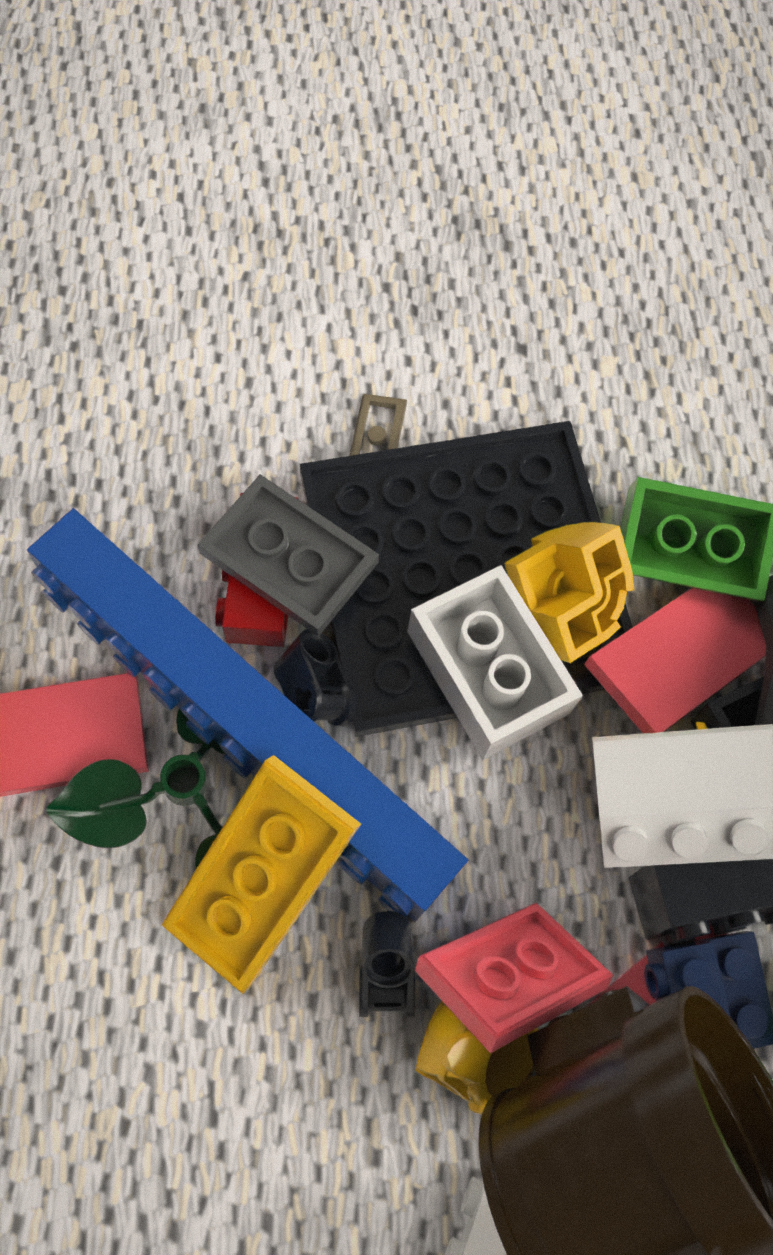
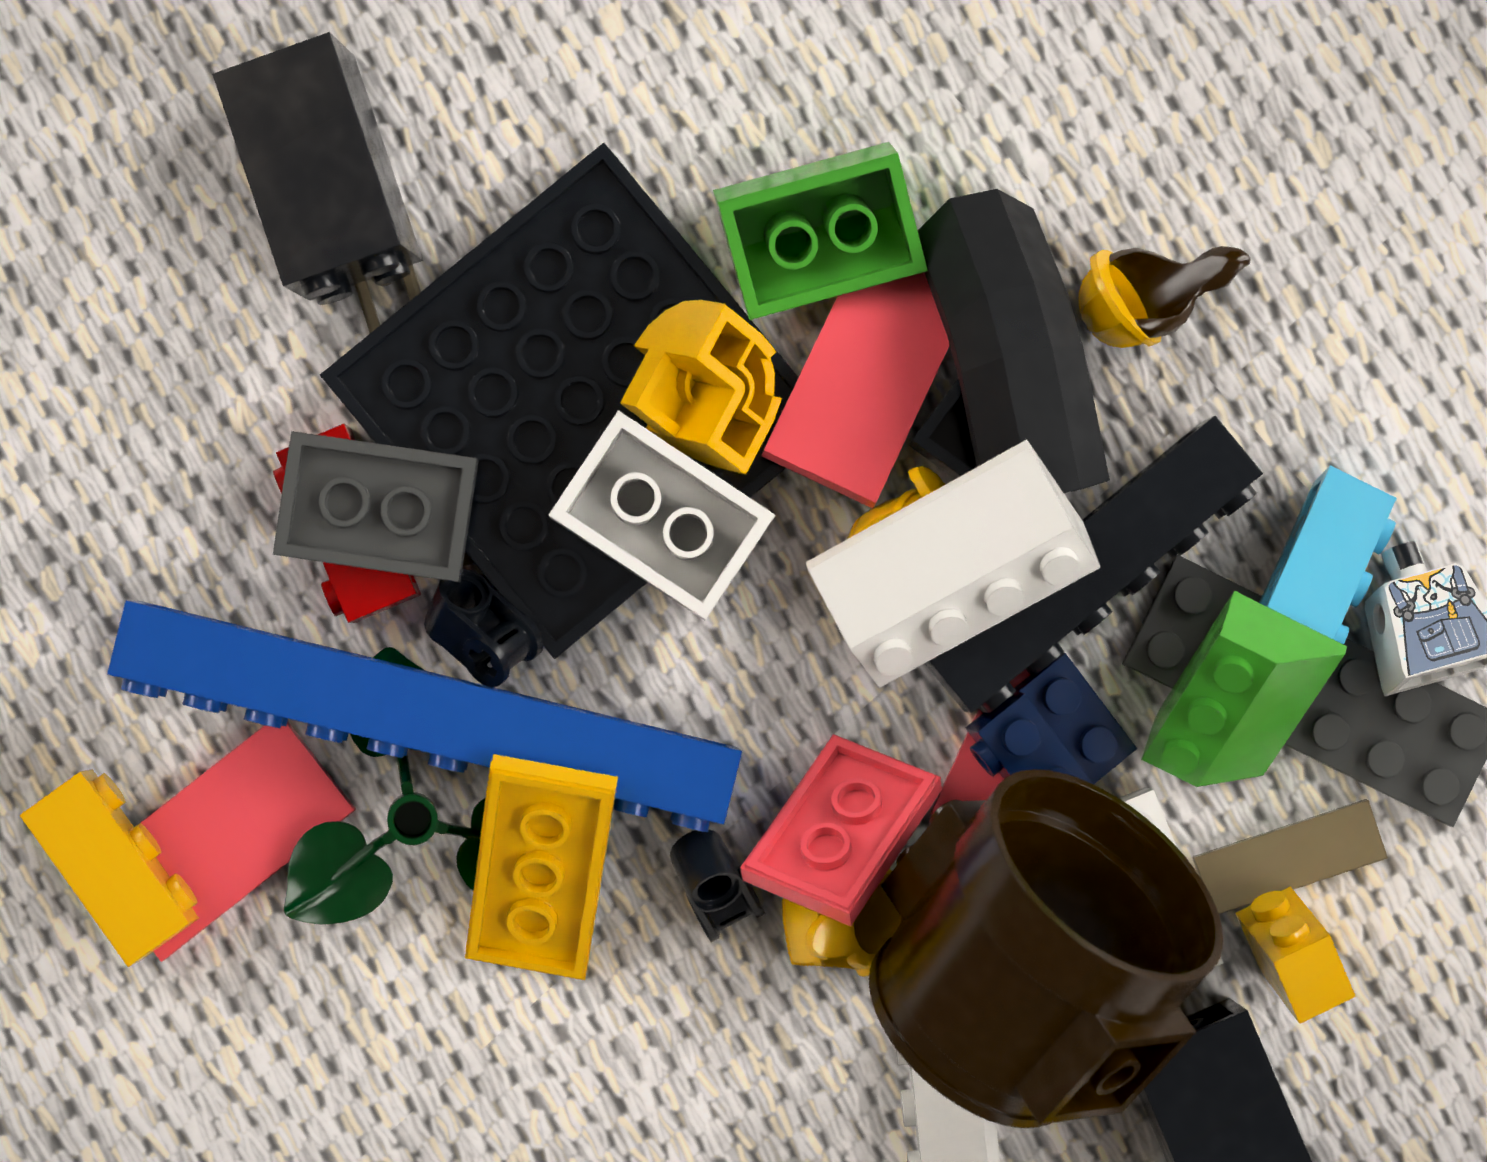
camera: 25 degrees left, 20 degrees up
(372, 339) = (318, 169): none -> black brick

